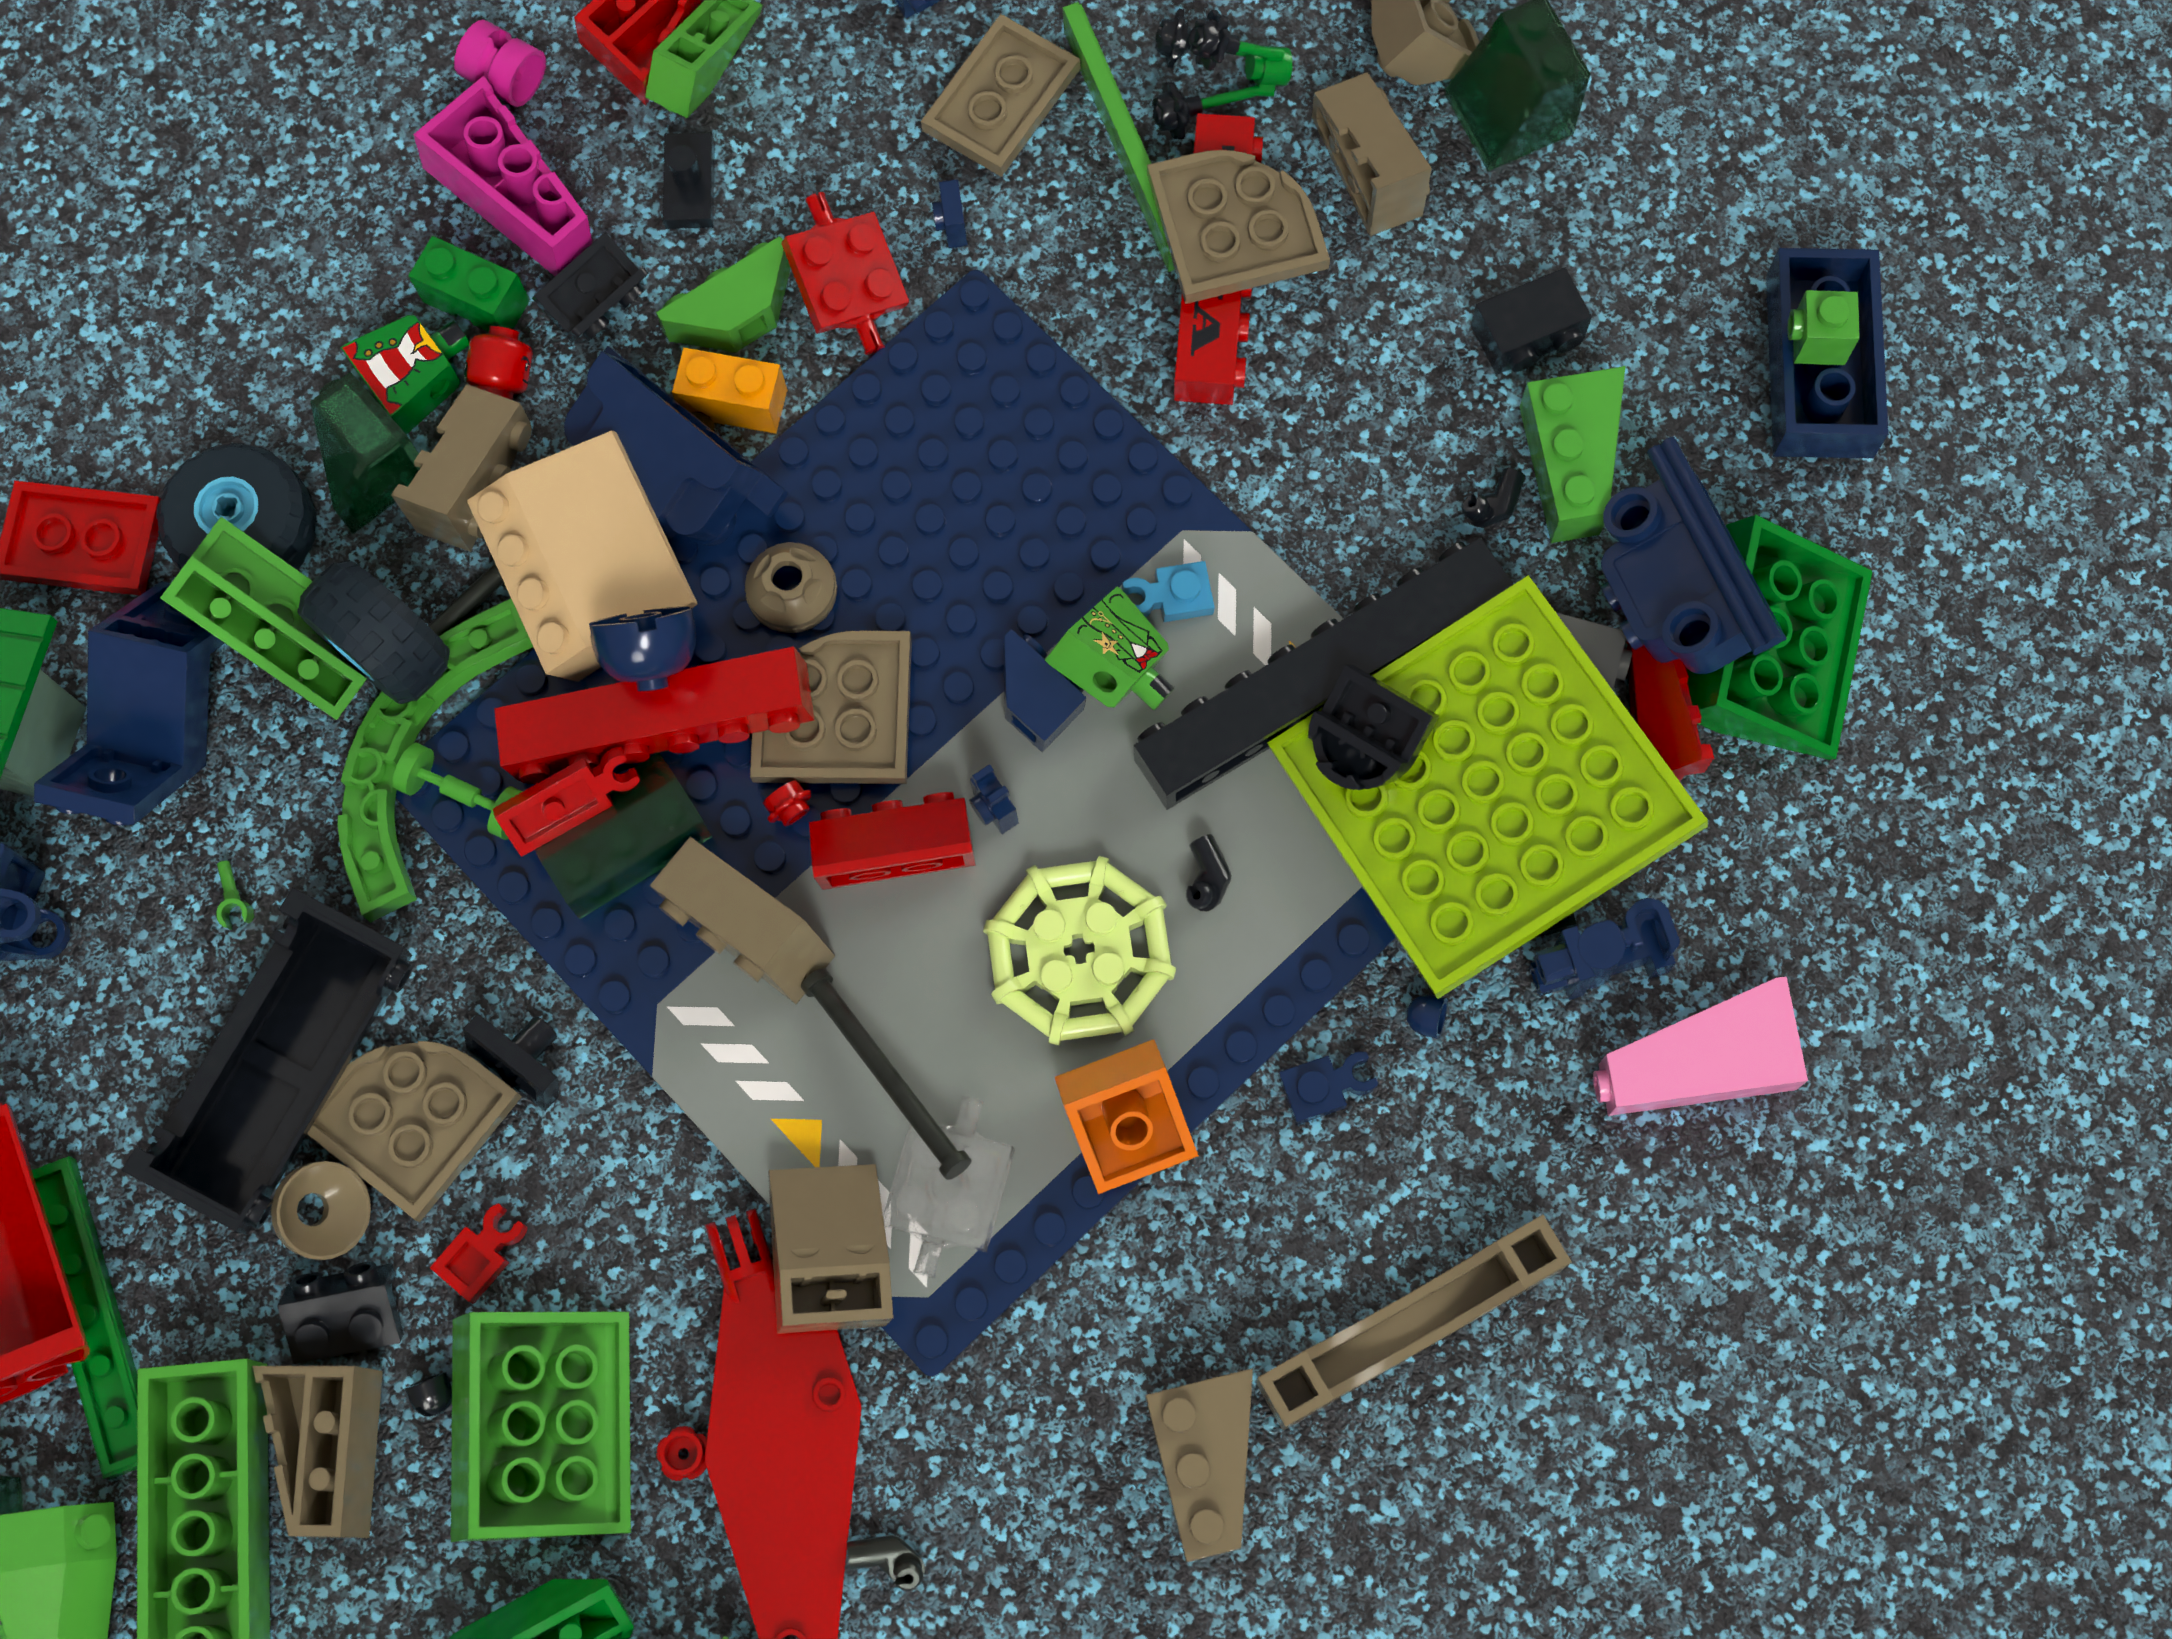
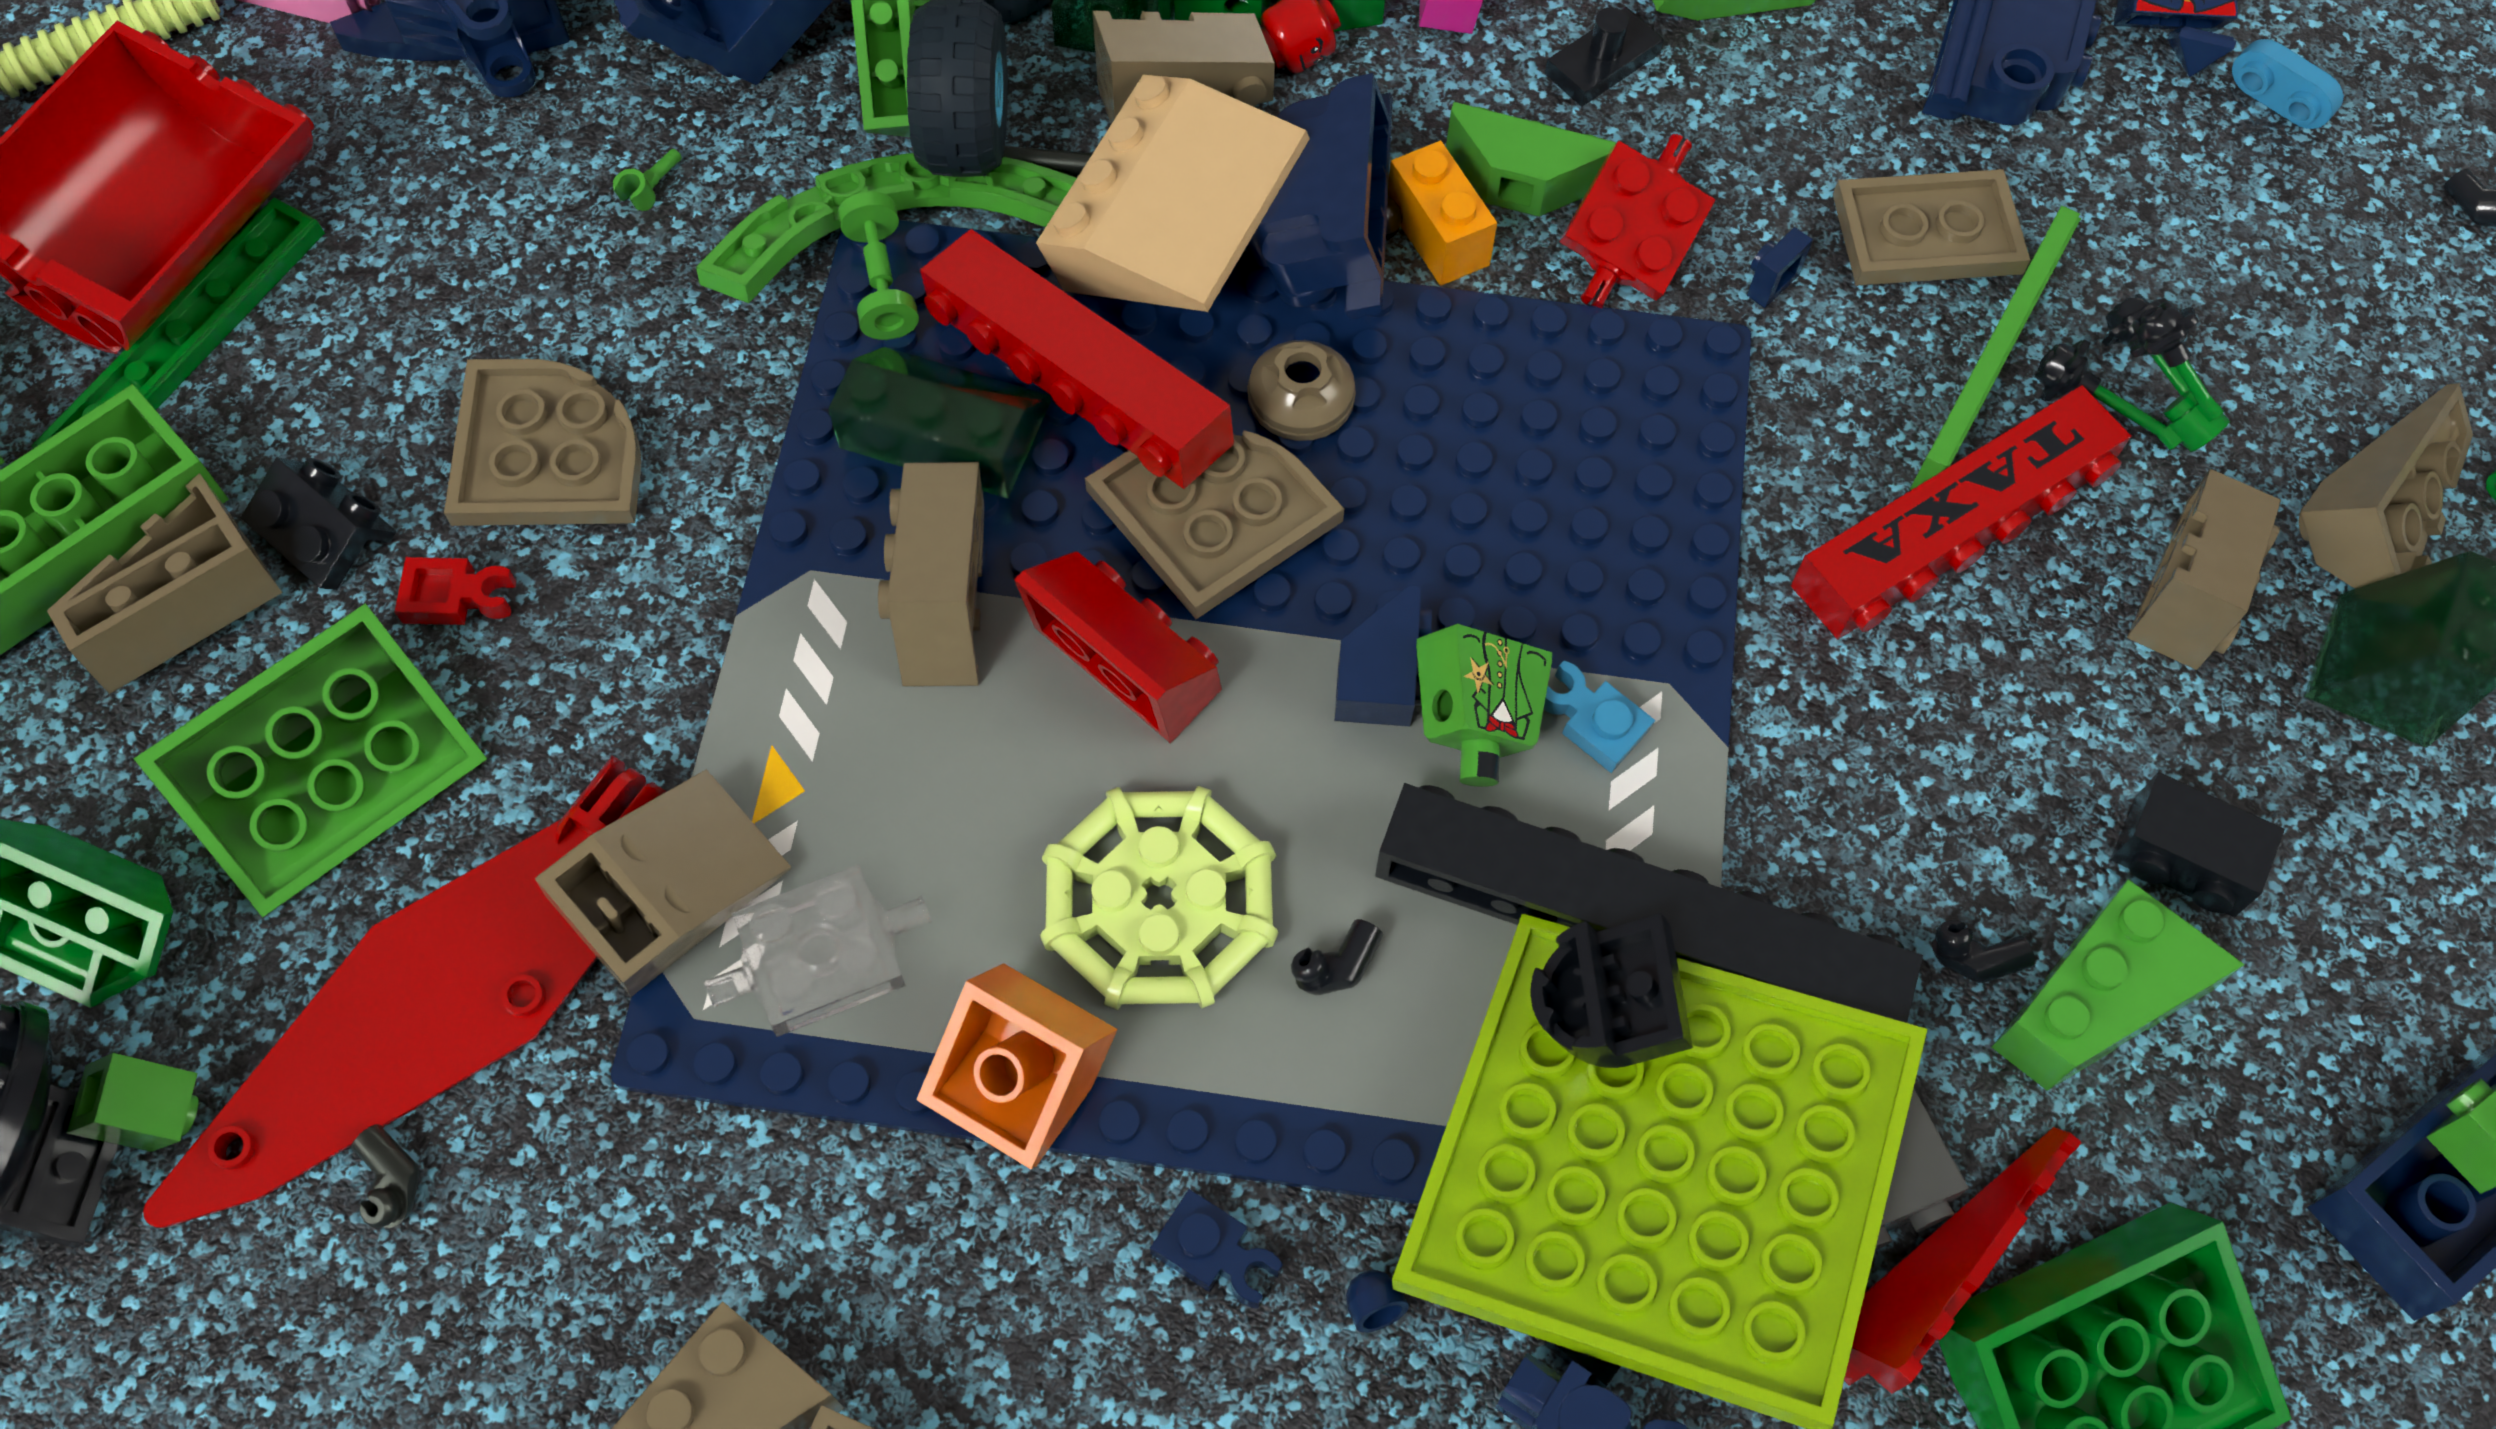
camera: 45 degrees right, 10 degrees down
(273, 1065) = (499, 299): black windscreen -> none
(344, 1212) = (375, 459): dark tan piece -> none
(430, 1395) = (278, 642): black hinge -> none
(517, 1057) = (667, 488): black tile -> none
(563, 801) = (925, 338): red plate -> none
(589, 288) = (1432, 50): black bracket -> none
(645, 645) = (1119, 283): dark blue cylinder -> none
(668, 1453) = (361, 894): red plate -> none
(788, 803) = (1088, 530): red plate -> none
(951, 1160) = (835, 925): pearl dark grey bar -> none
(992, 800) = (1241, 700): dark blue plate -> none
(1234, 223) = (2008, 488): dark tan plate -> none
(1682, 572) = (2085, 1192): dark blue brick -> none

